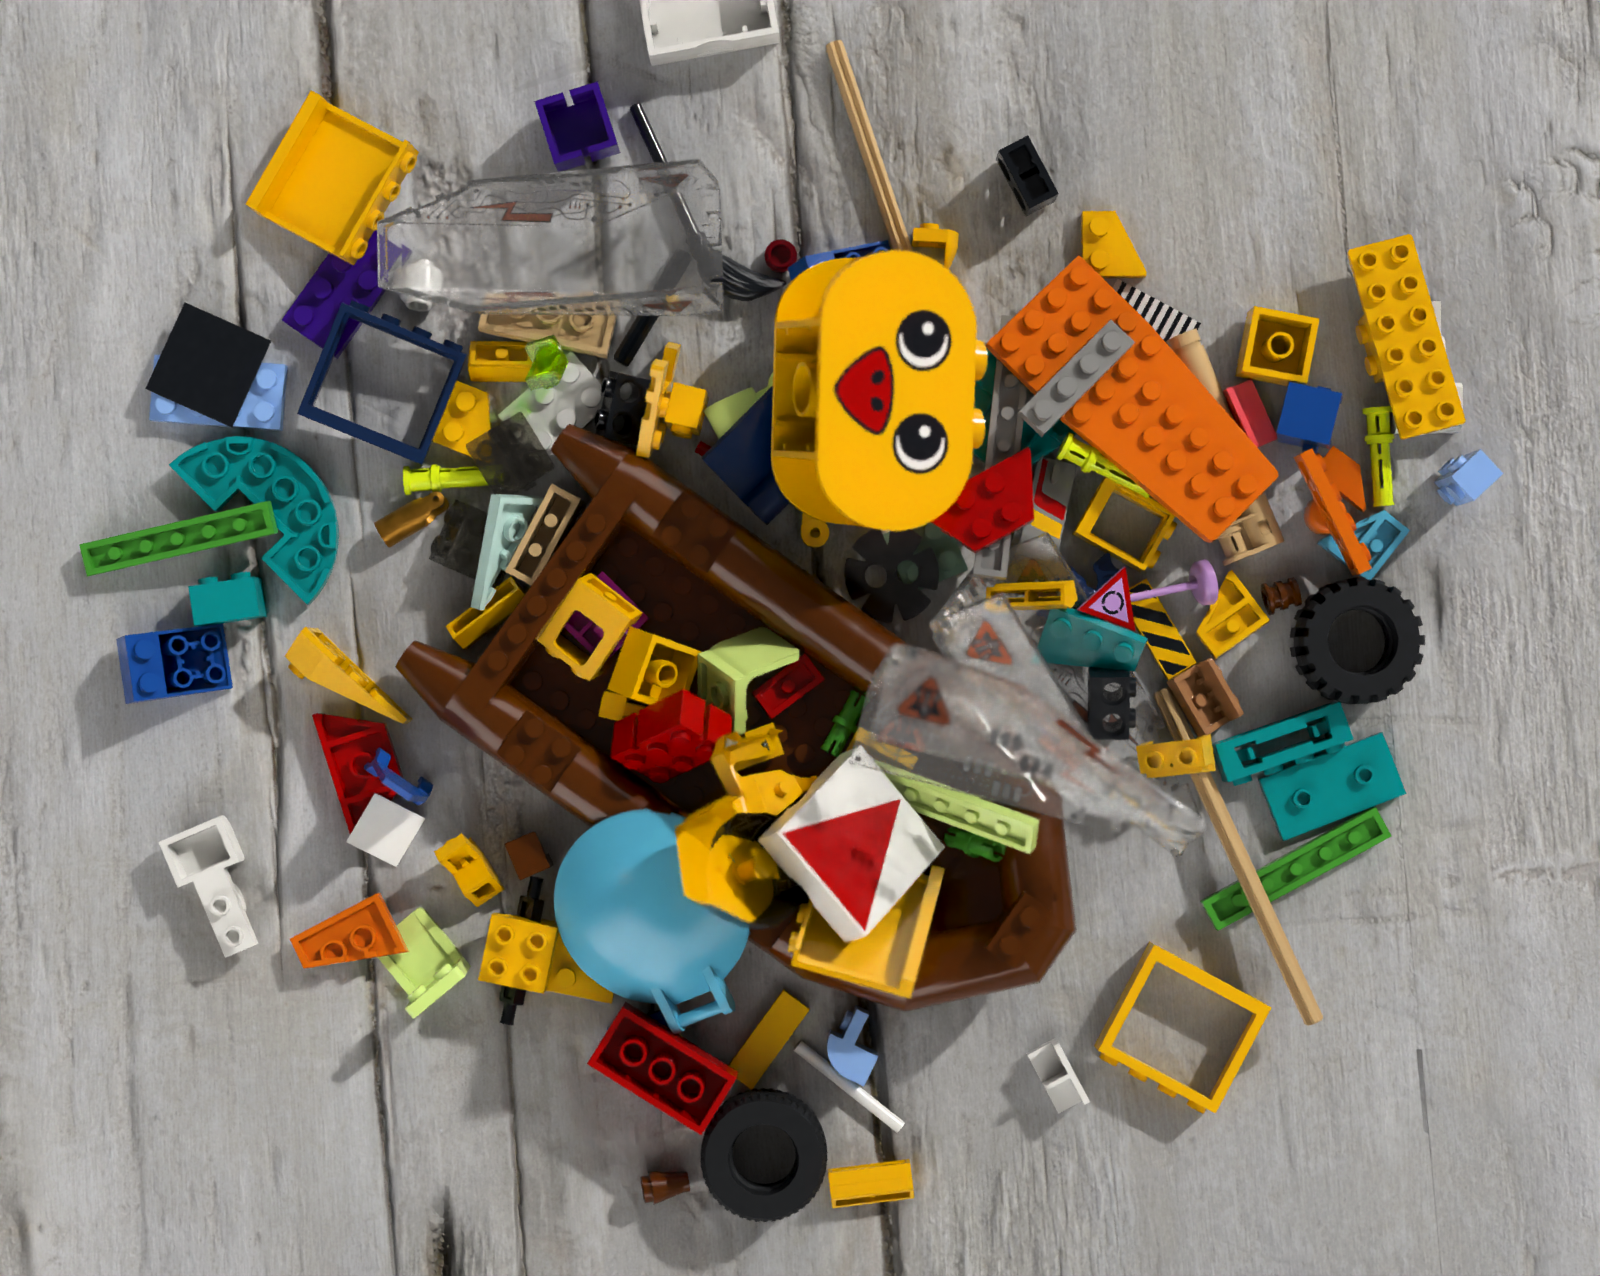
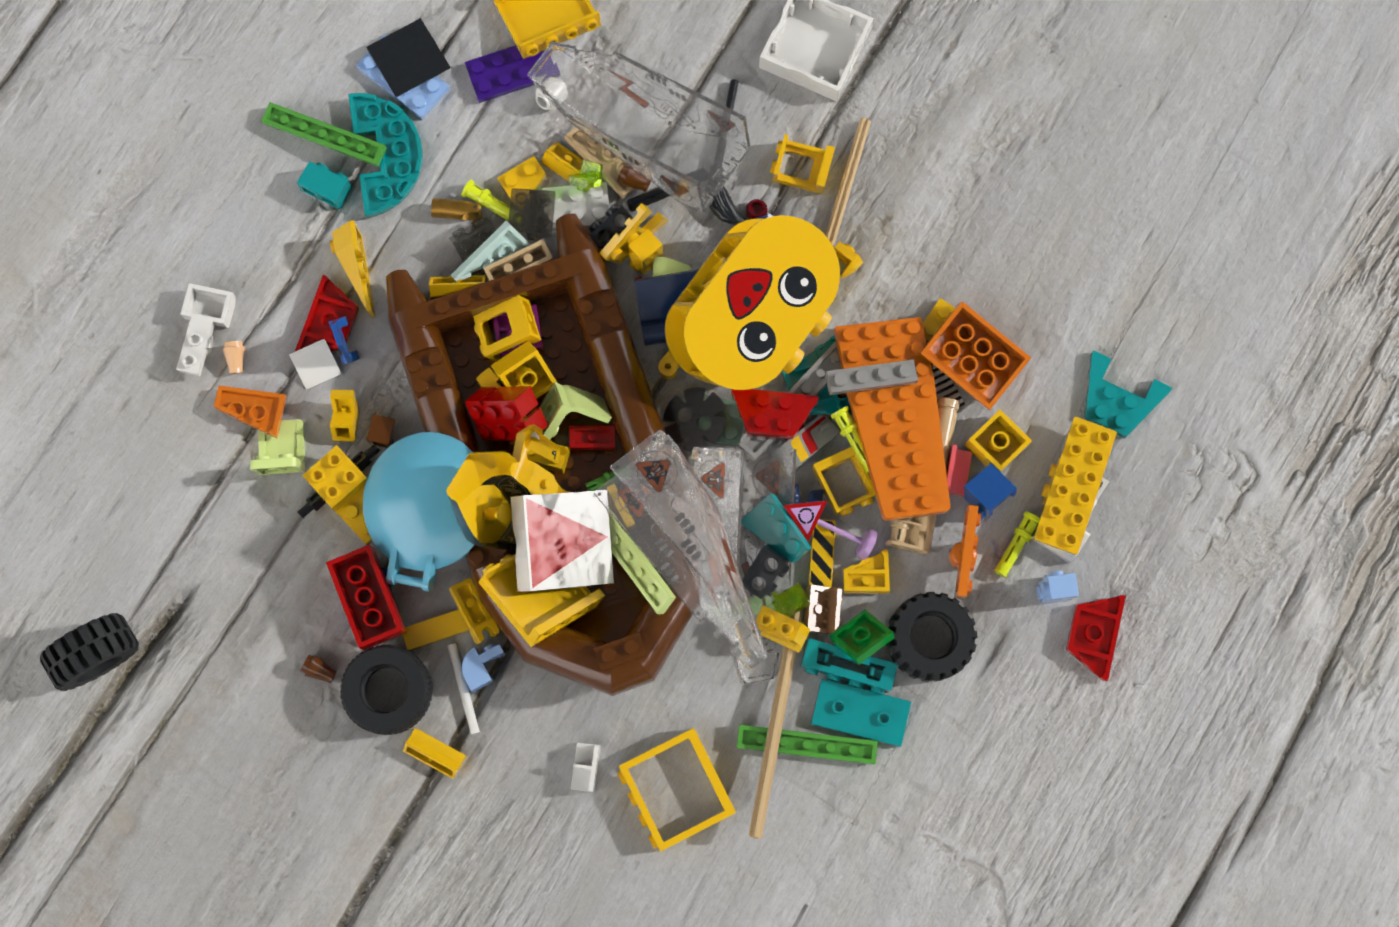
camera: 30 degrees right, 10 degrees down
(174, 663) = (271, 197): blue slope -> none
(280, 889) = (234, 356): none -> light nougat cone
(392, 327) = (519, 102): dark blue window -> none
(577, 129) = (693, 70): dark purple piece -> none
(603, 327) = (631, 178): none -> reddish brown cone
(798, 993) = (473, 611): none -> yellow plate
(822, 149) = (820, 168): none -> yellow window
(974, 844) = (631, 594): bright green pin -> none
(1026, 175) = (921, 256): black brick -> none
(1031, 600) = (781, 493): yellow piece -> none
(1162, 715) = (790, 600): none -> clear neon green bracket
(1177, 258) = (975, 355): none -> orange slope
(1278, 701) = (862, 636): none -> green plate
(1281, 595) = (906, 583): reddish brown bush -> none
(1346, 476) = (988, 542): orange slope -> none
(1381, 536) = (984, 590): medium azure wing -> none
(1382, 200) = (1115, 406): none -> teal wing
(1544, 498) = (1095, 634): none -> red wing

